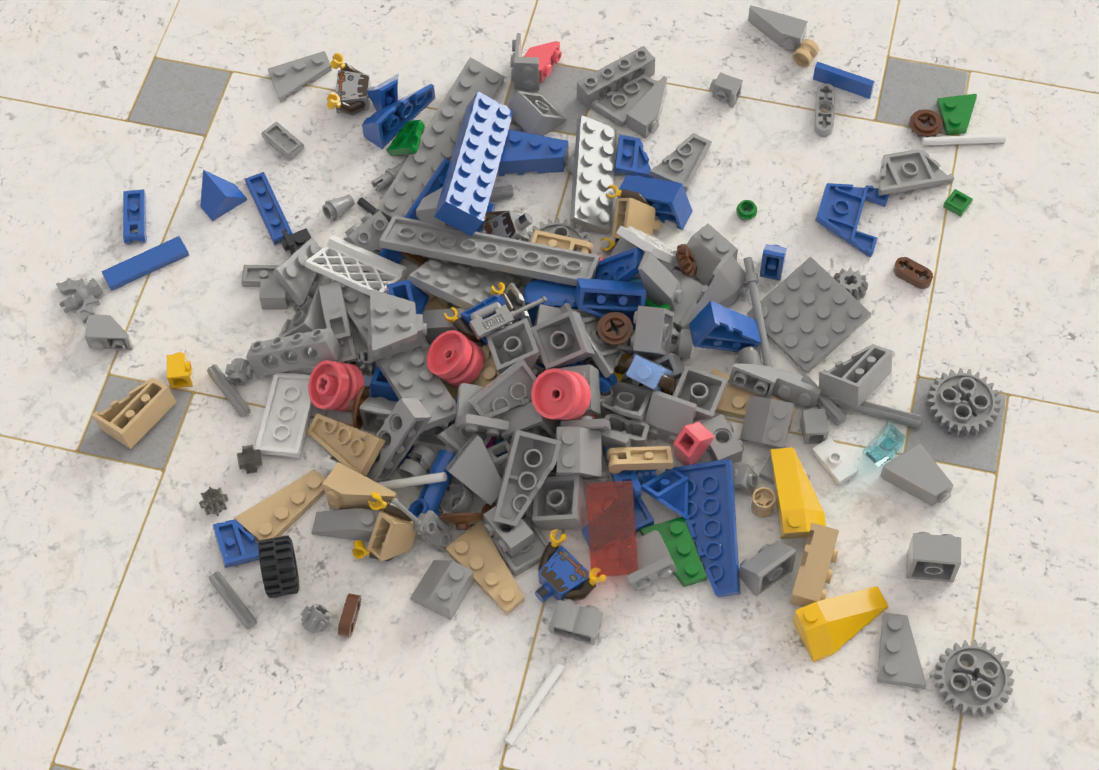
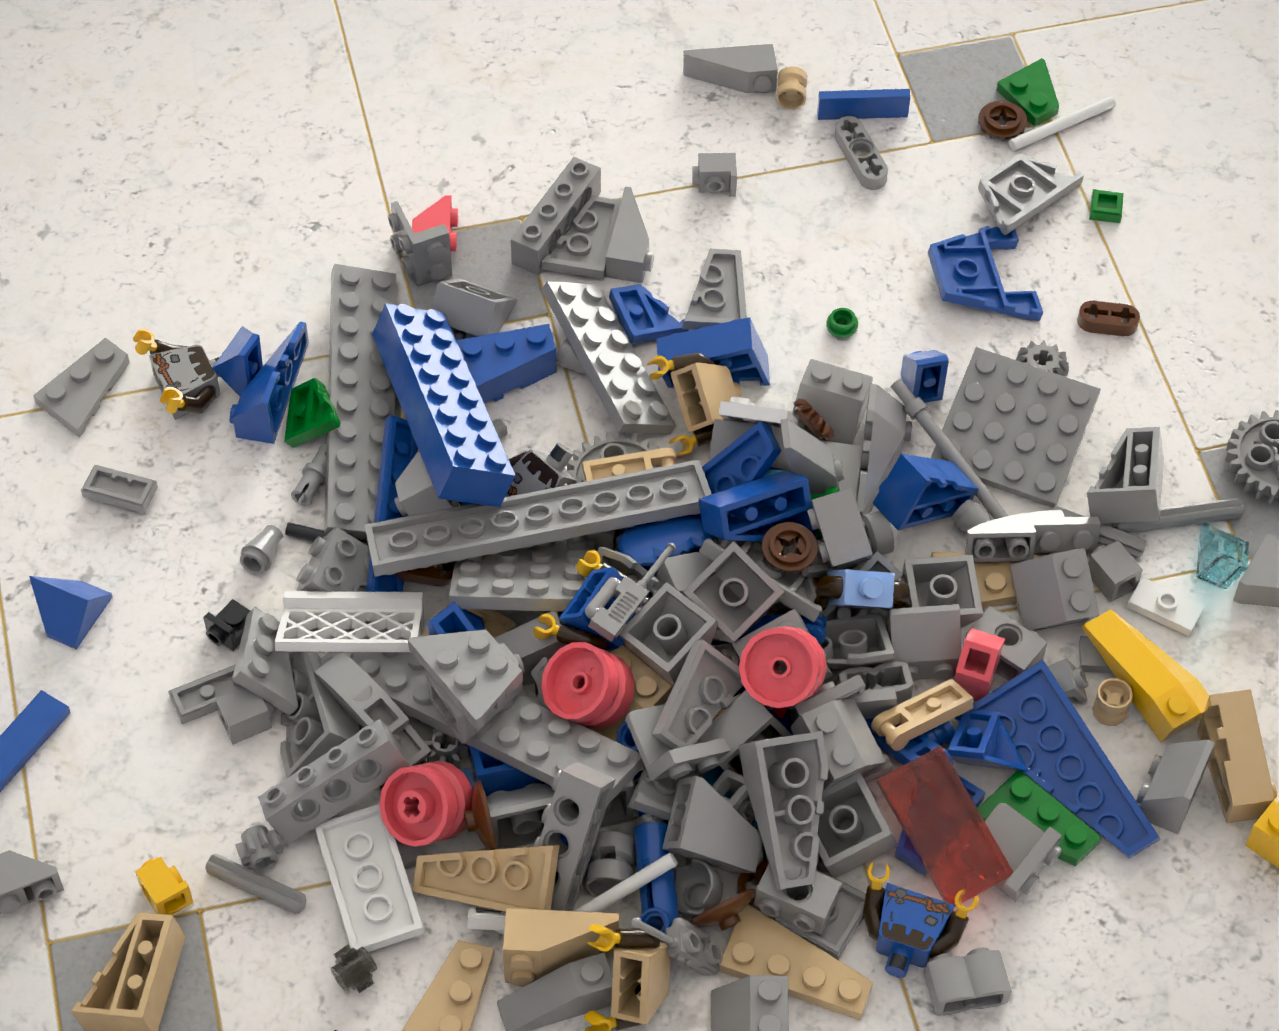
camera: 30 degrees left, 5 degrees down
(268, 206) = (153, 593): blue tile -> none

